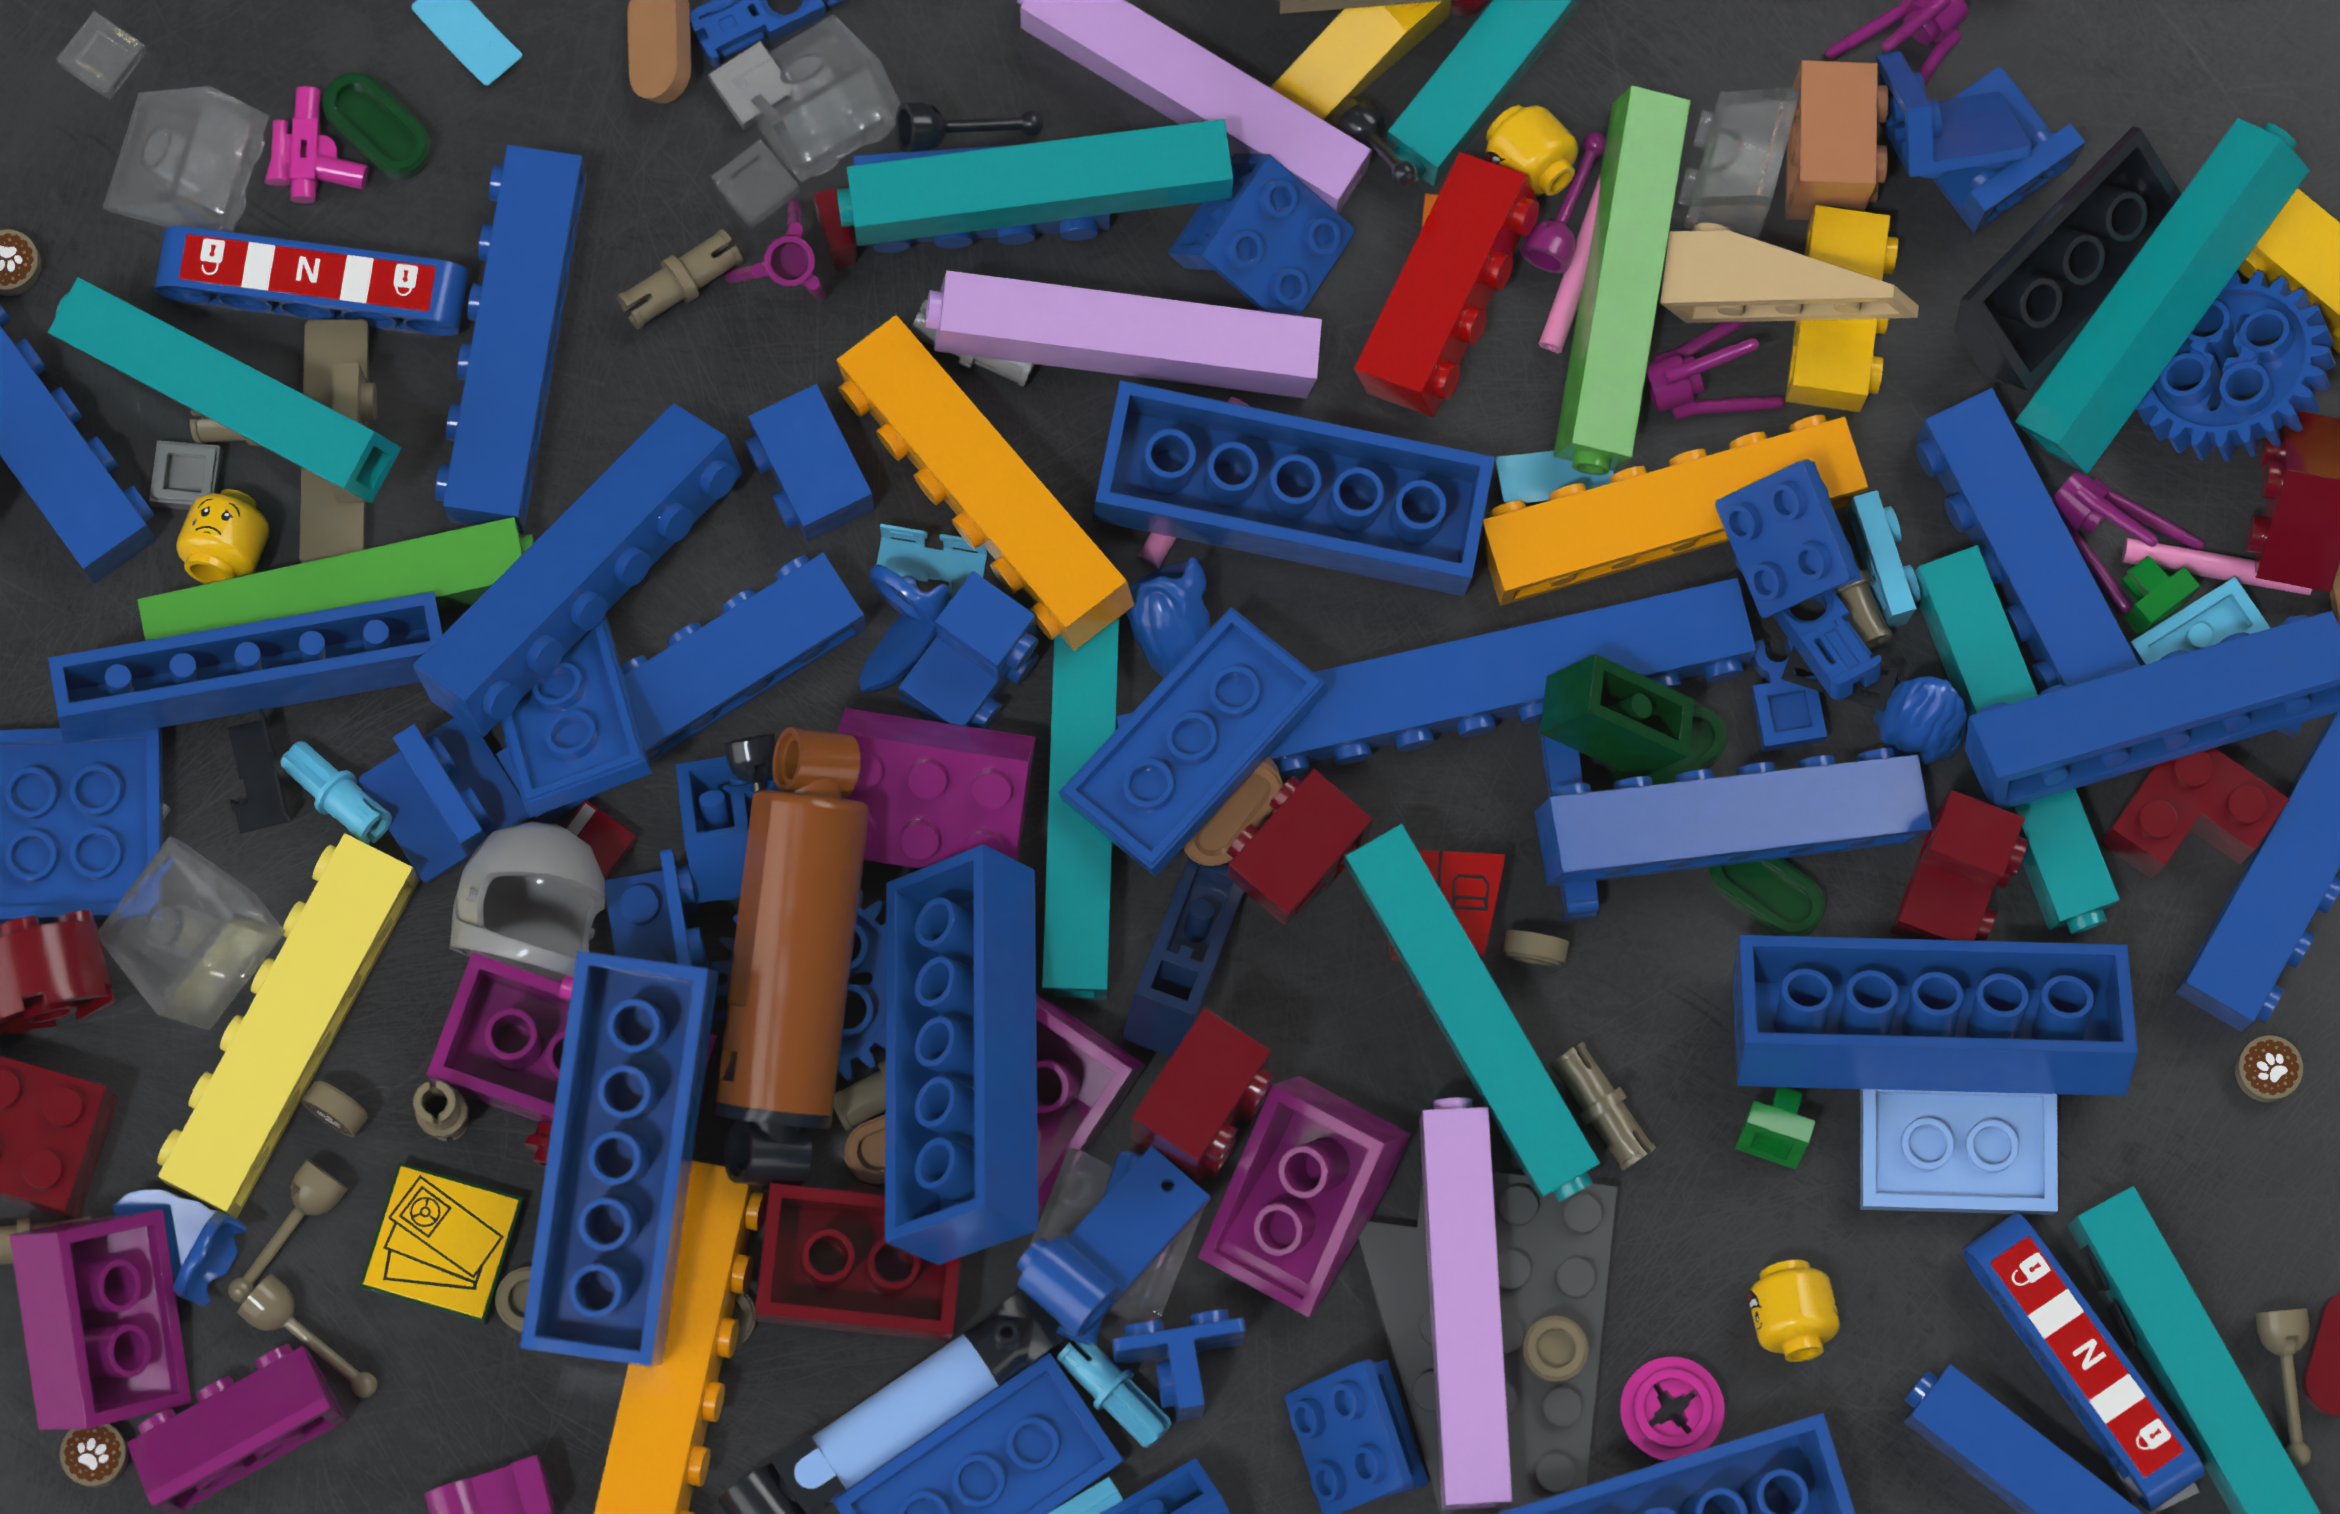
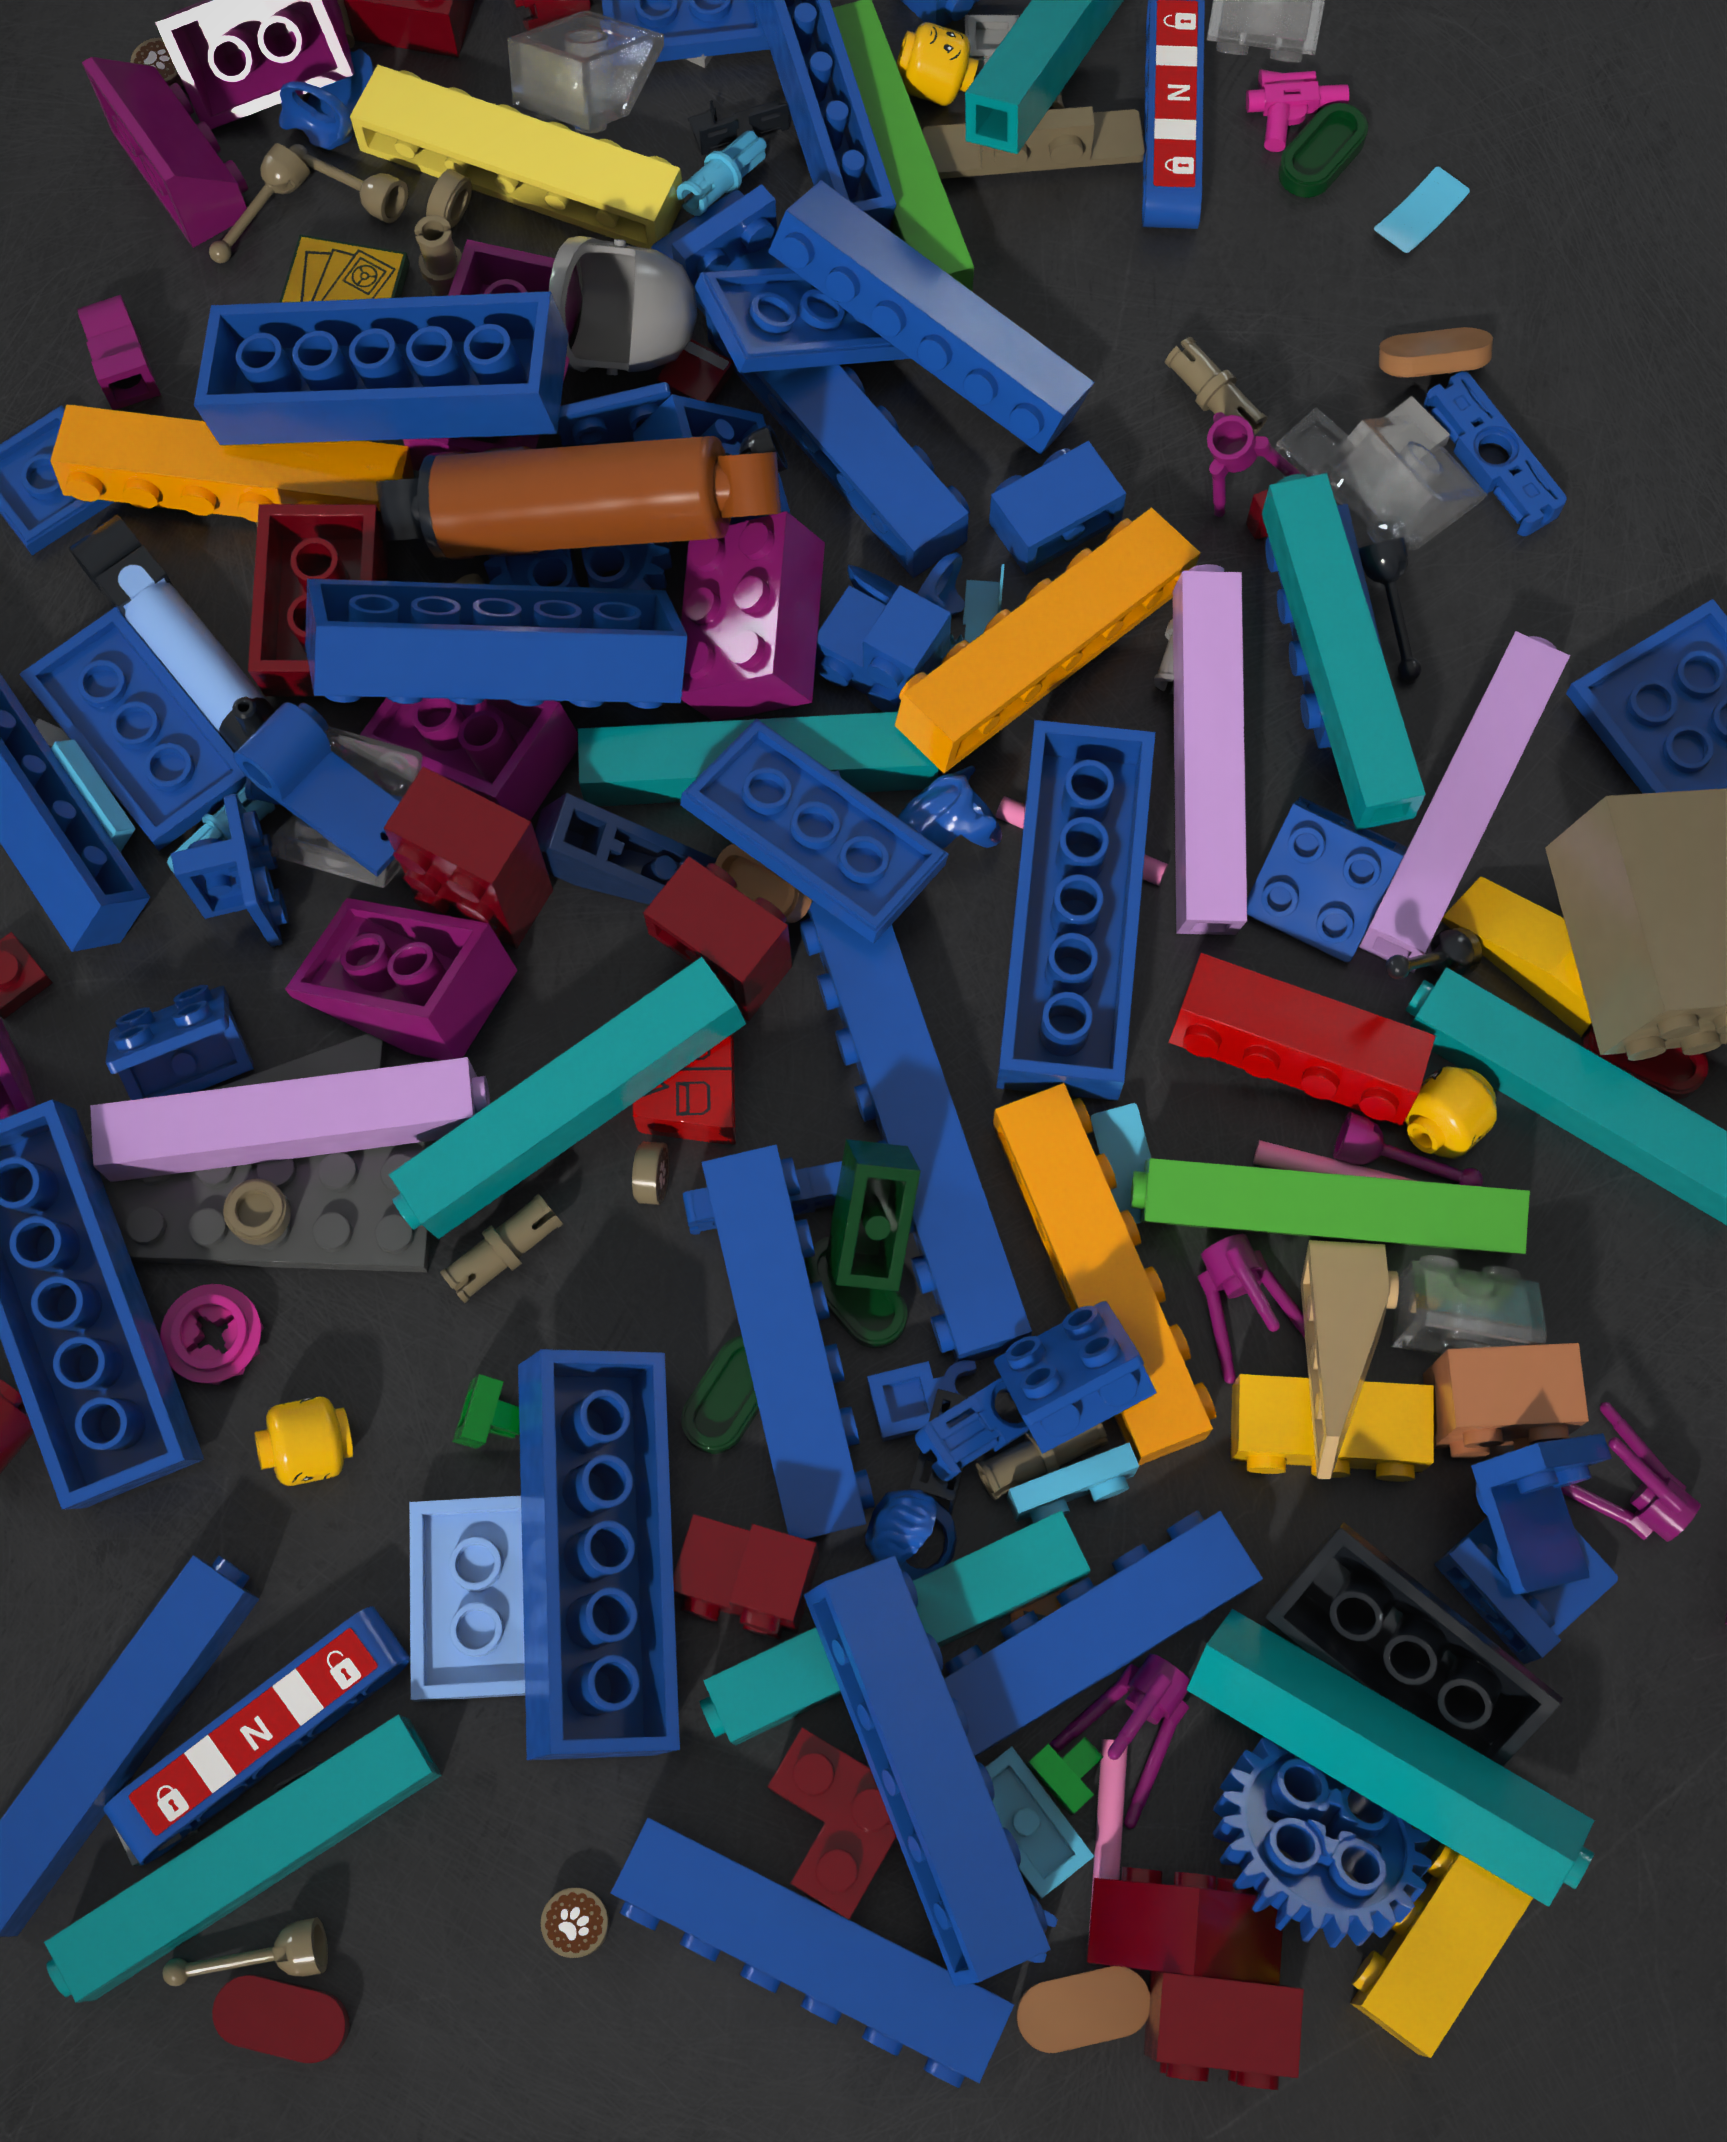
camera: 90 degrees right, 5 degrees down
(513, 336) = (1144, 264): blue brick -> none

